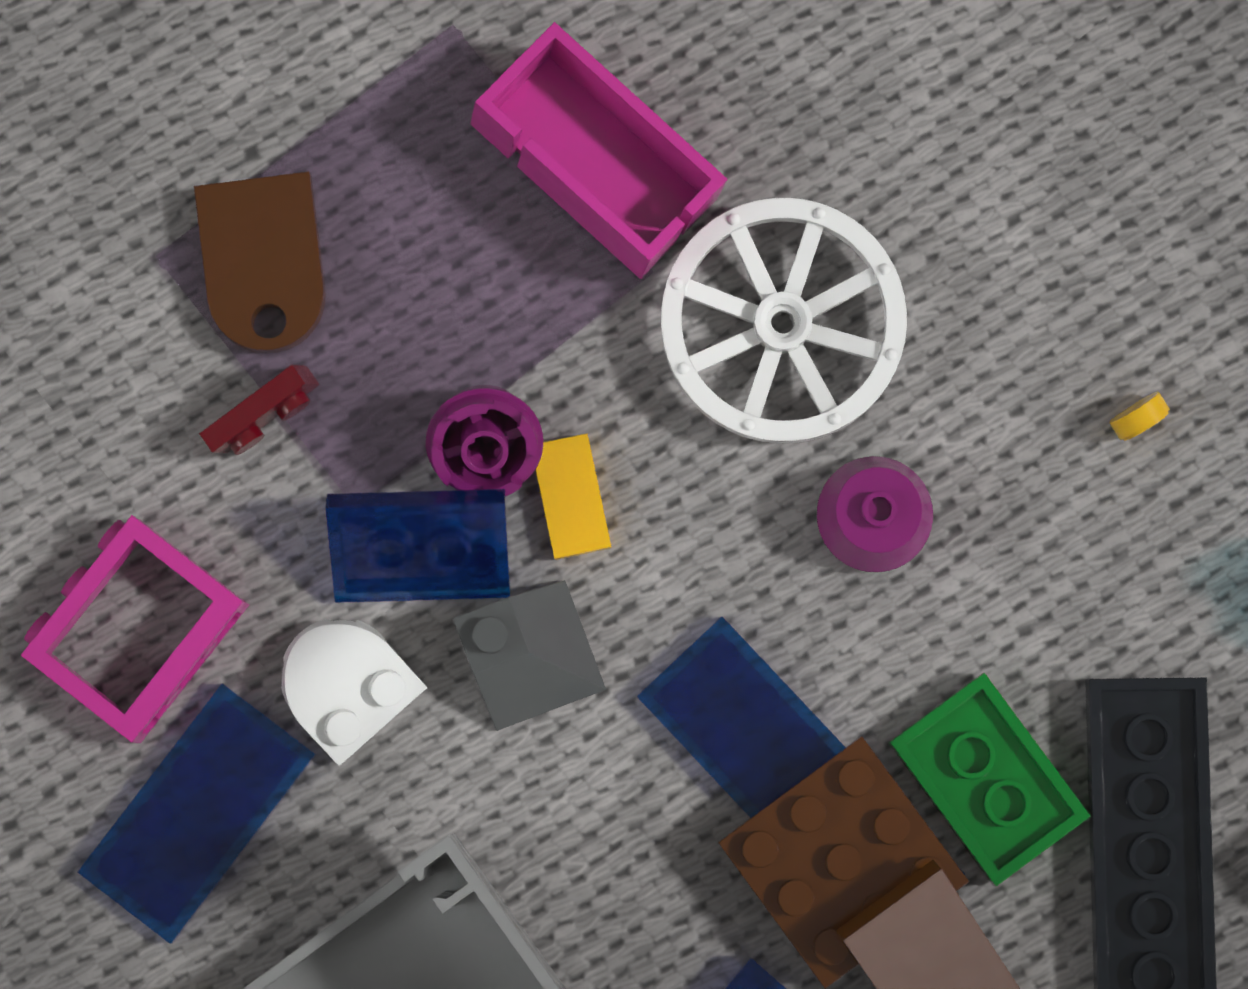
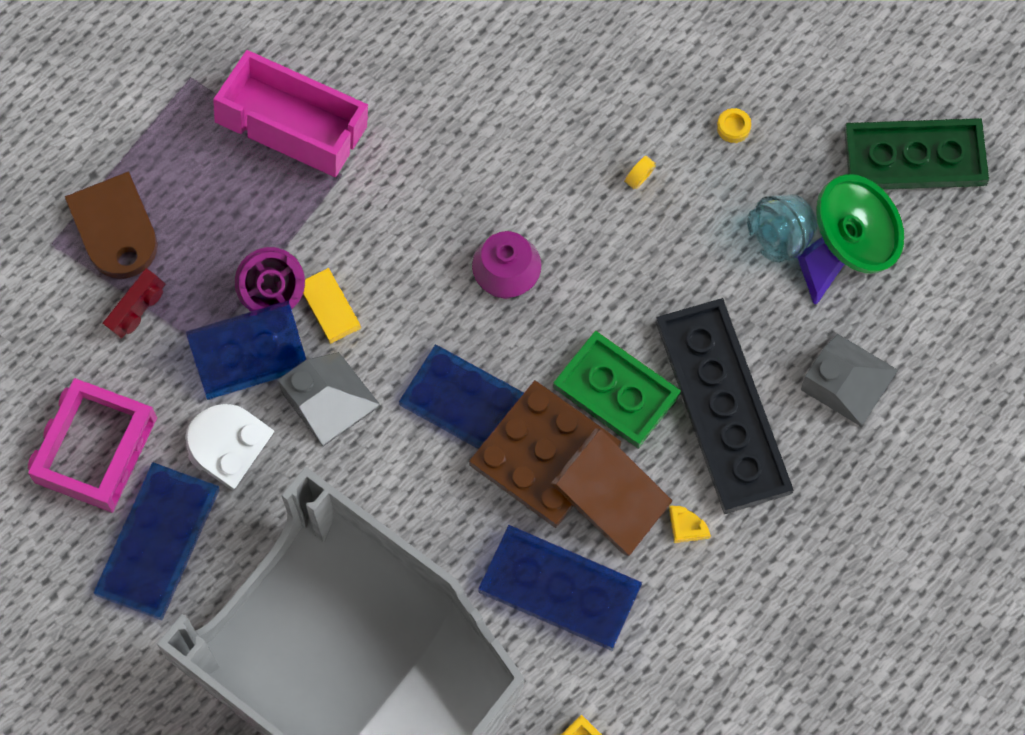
camera: 15 degrees left, 15 degrees down
(879, 273) = (422, 168): white wheel -> none

